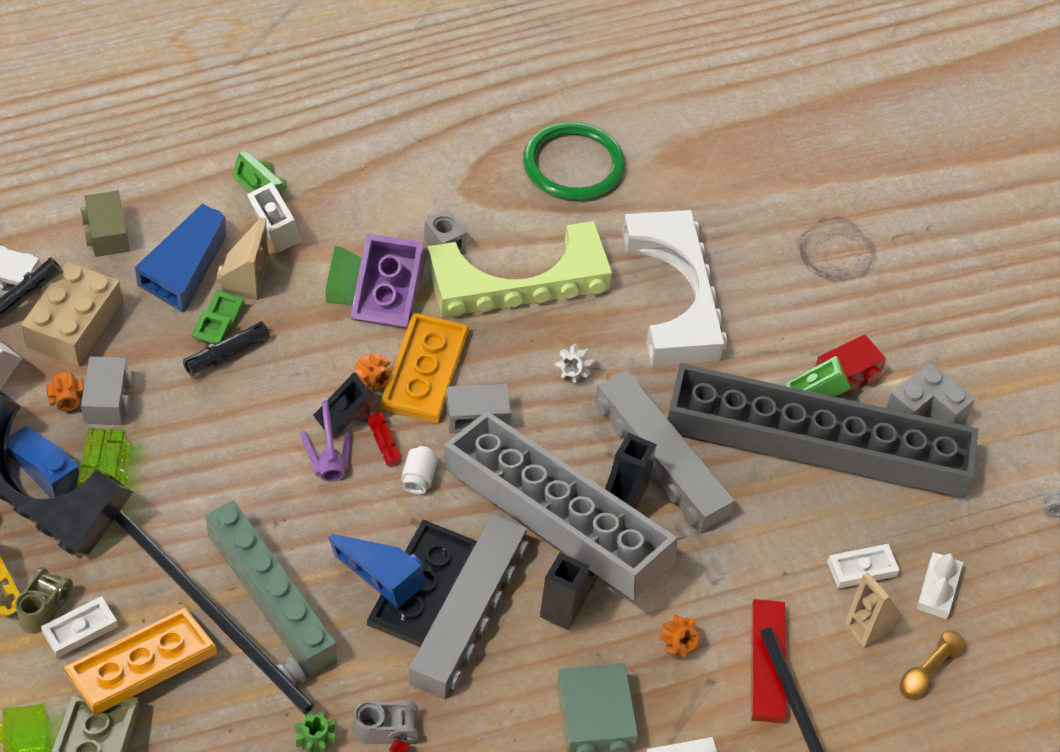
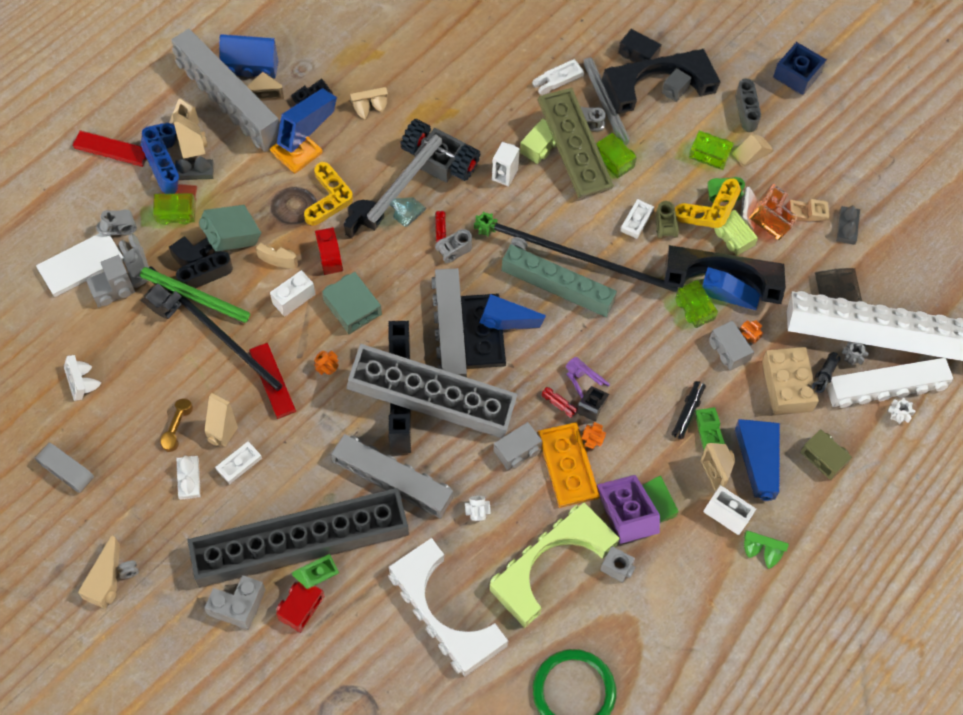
camera: 155 degrees right, 10 degrees up
(140, 661) = (594, 215): light orange tile -> none
(419, 470) = (526, 389): white brick -> none

